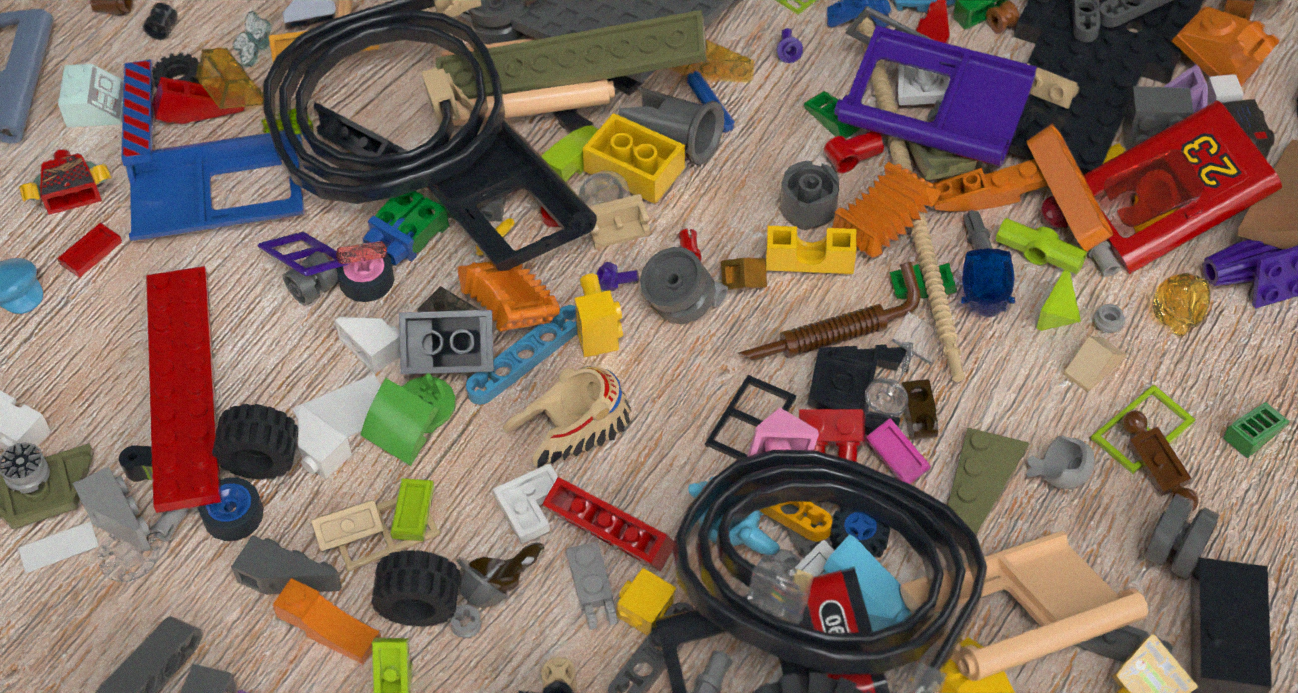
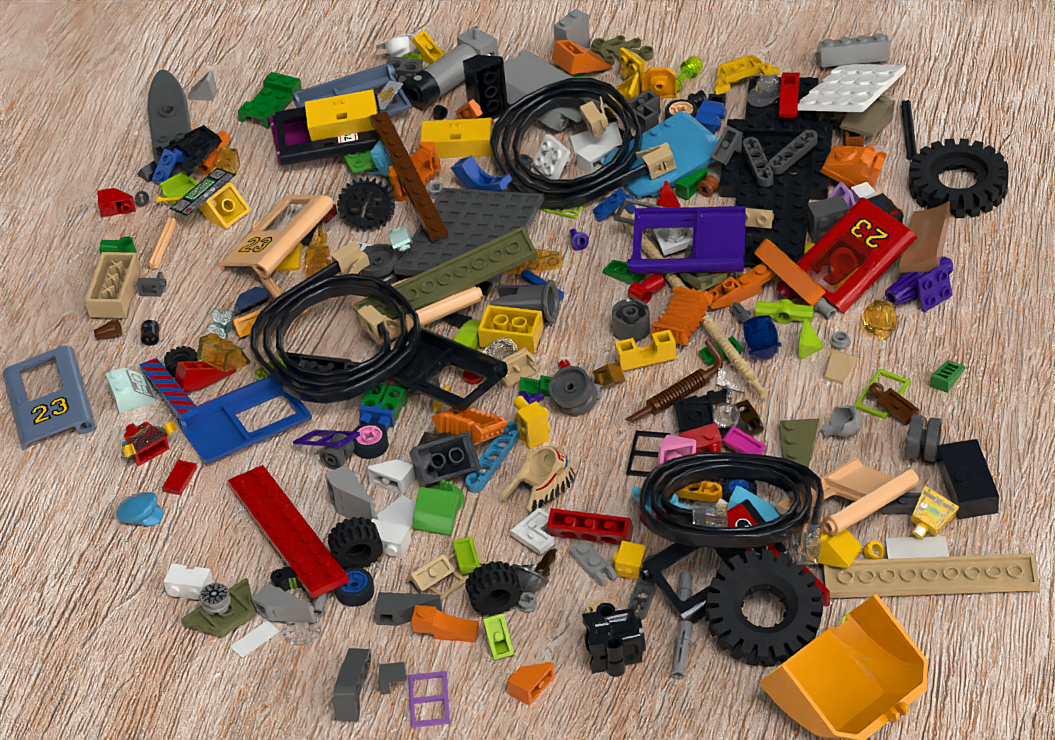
camera: 15 degrees left, 10 degrees down
(289, 356) = (349, 495): none -> light grey slope
(355, 253) = (366, 425): clear red piece -> none
(630, 257) = (535, 386): none -> green slope

